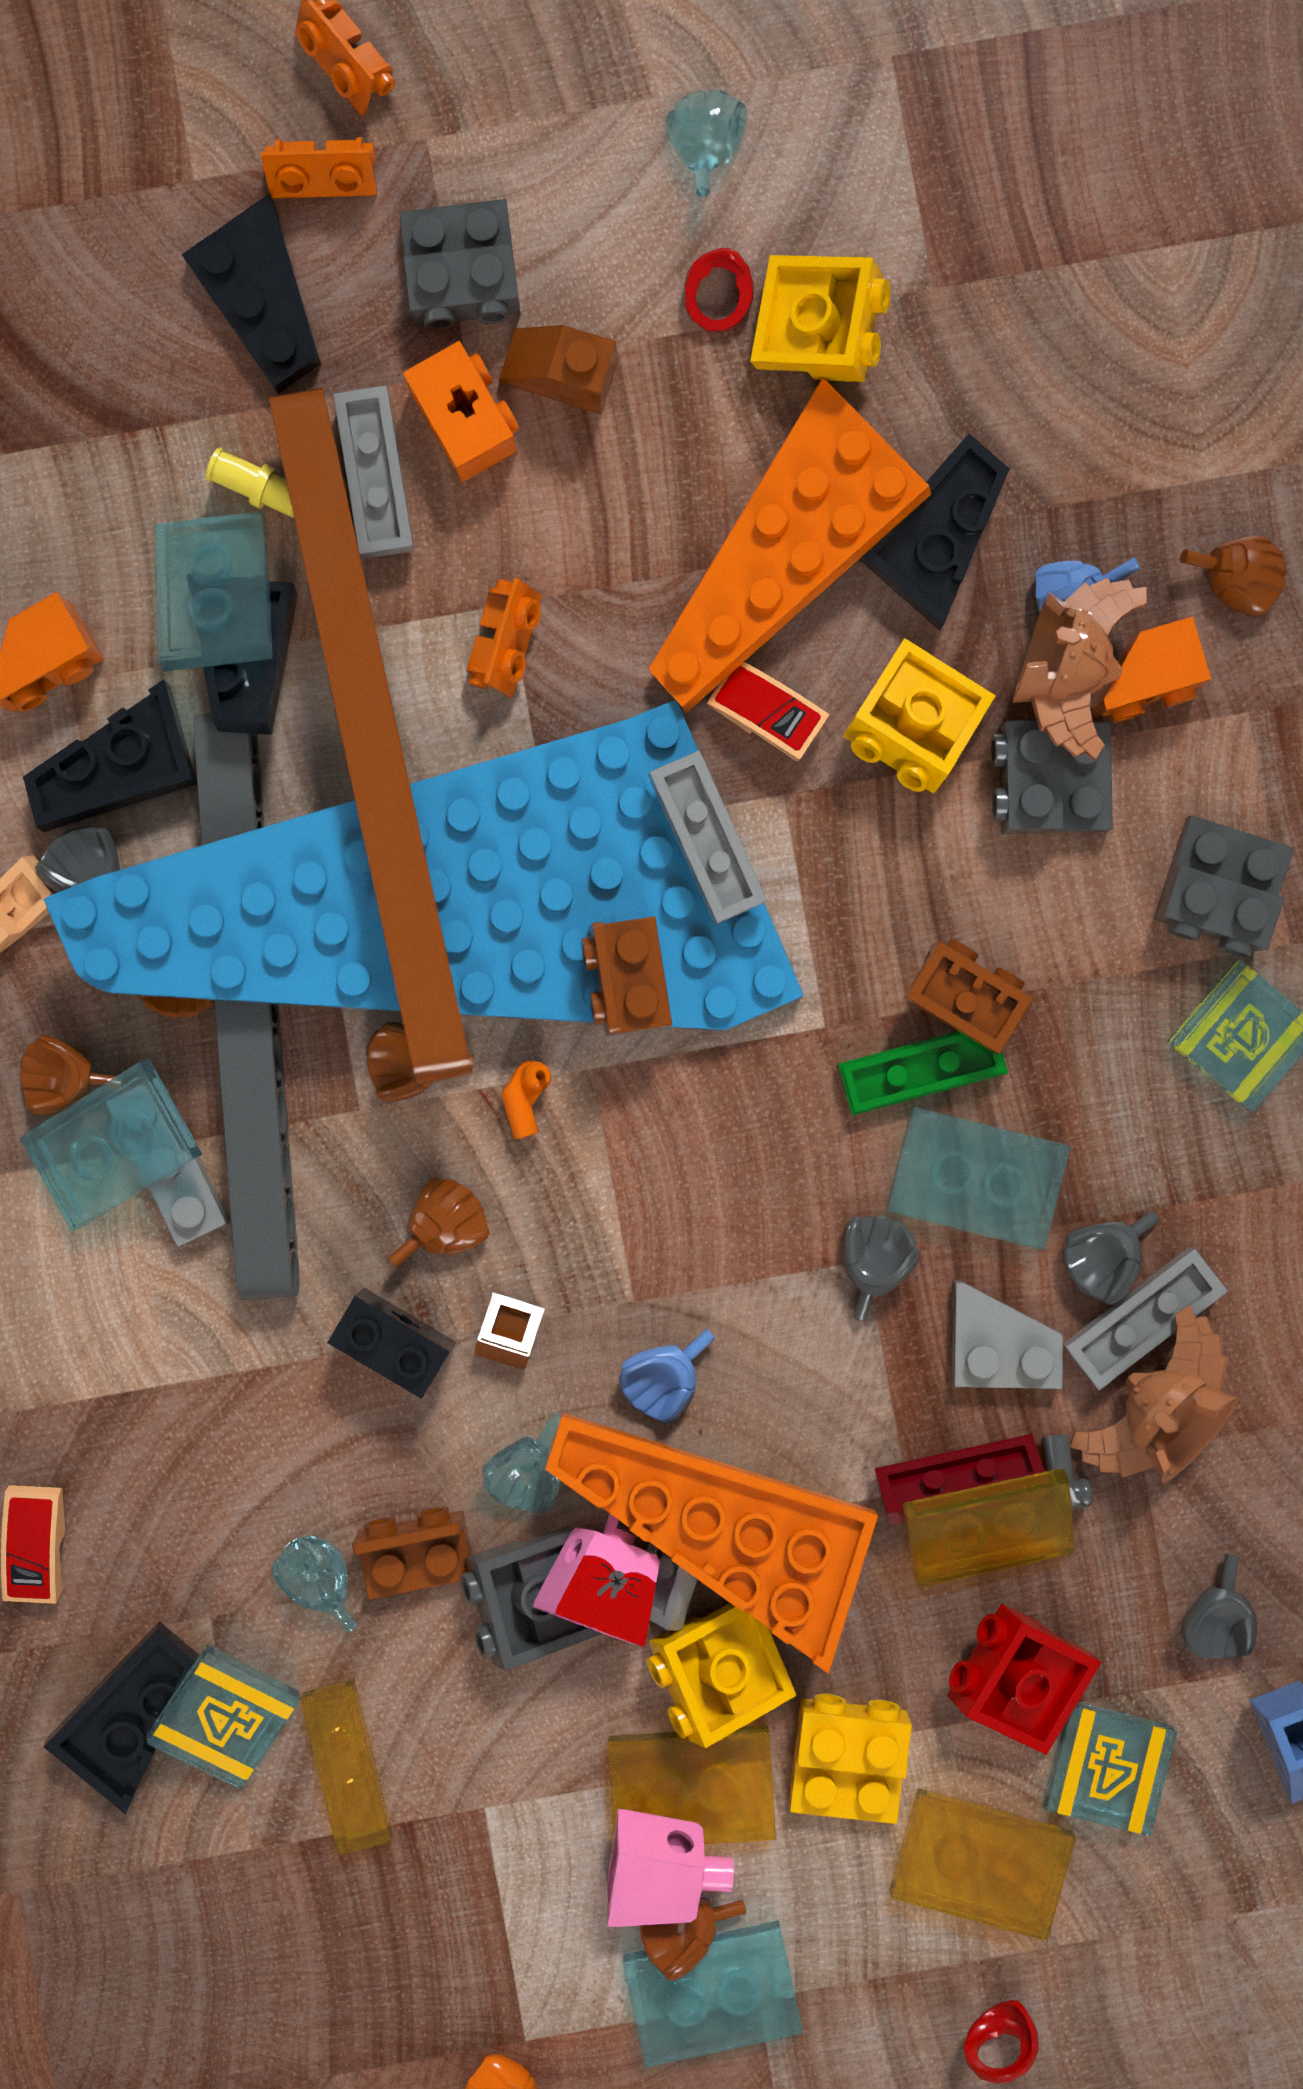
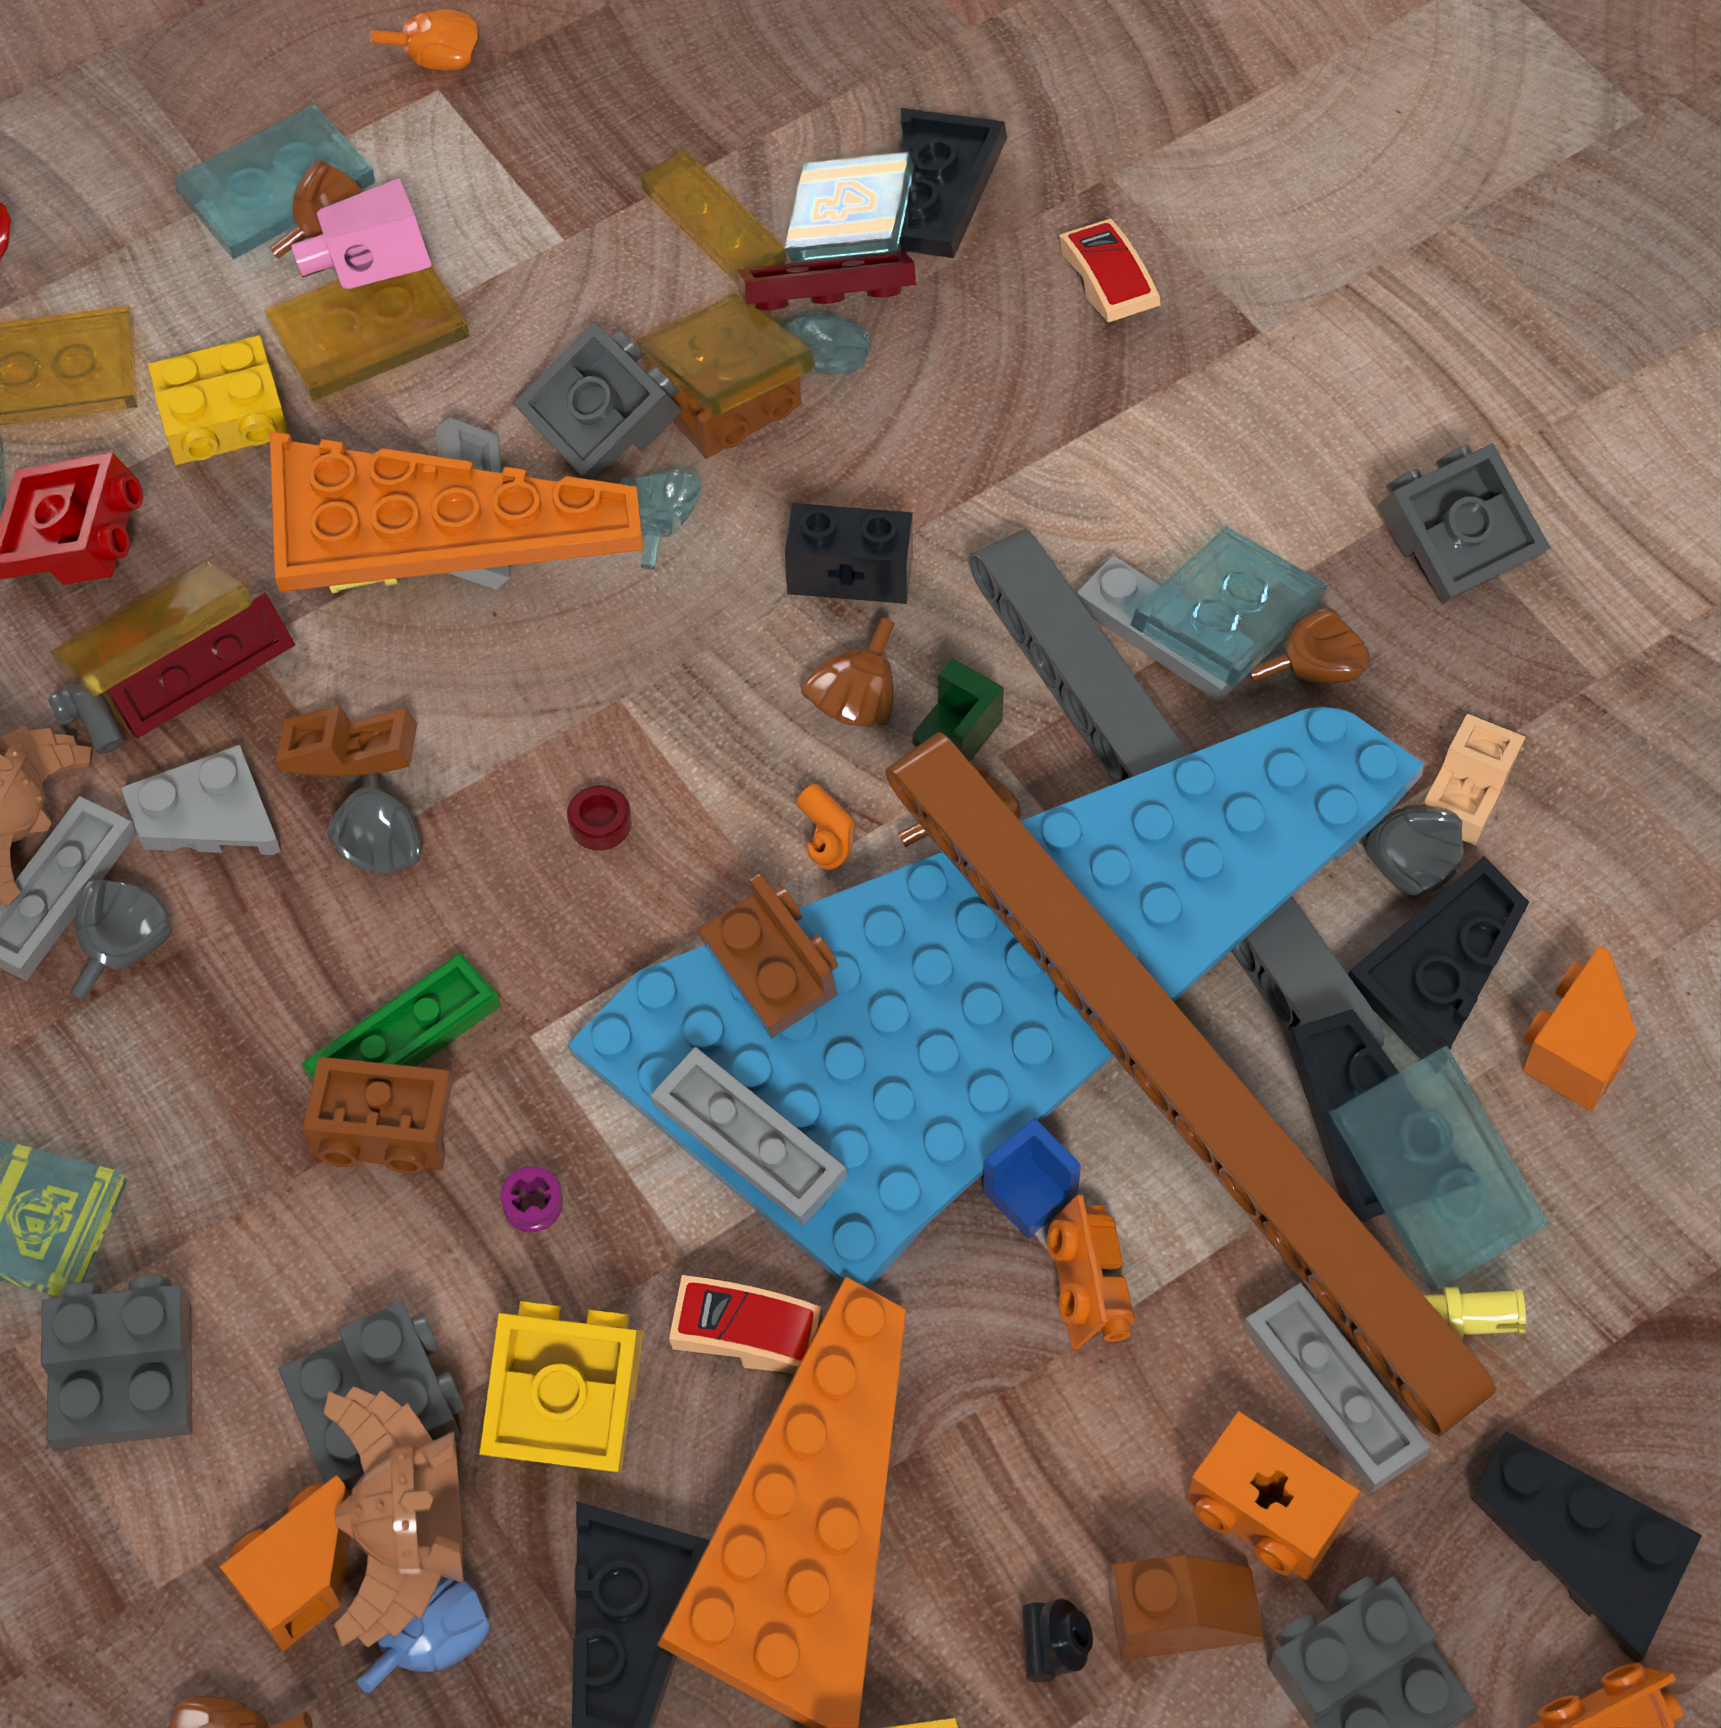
camera: 155 degrees right, 30 degrees down
(281, 1644) = (826, 279): none -> dark red plate
(377, 1148) = (966, 709): none -> dark green panel
(405, 1593) = (726, 354): none -> clear yellow tile
(508, 1331) = (737, 620): slope -> none
(511, 724) = (1031, 1178): none -> blue panel
(603, 1583) = (535, 423): torso -> none
(656, 388) = (1055, 1639): none -> black plate
(662, 1379) = (554, 636): medium blue piece -> none
(696, 1192) = (599, 817): none -> dark red tile
(719, 1674) = (381, 403): yellow plate -> none
(870, 1348) = (334, 746): none -> dark orange slope
(882, 868) = (529, 1180): none -> magenta bush
(978, 1178) = (292, 954): clear light blue tile -> none

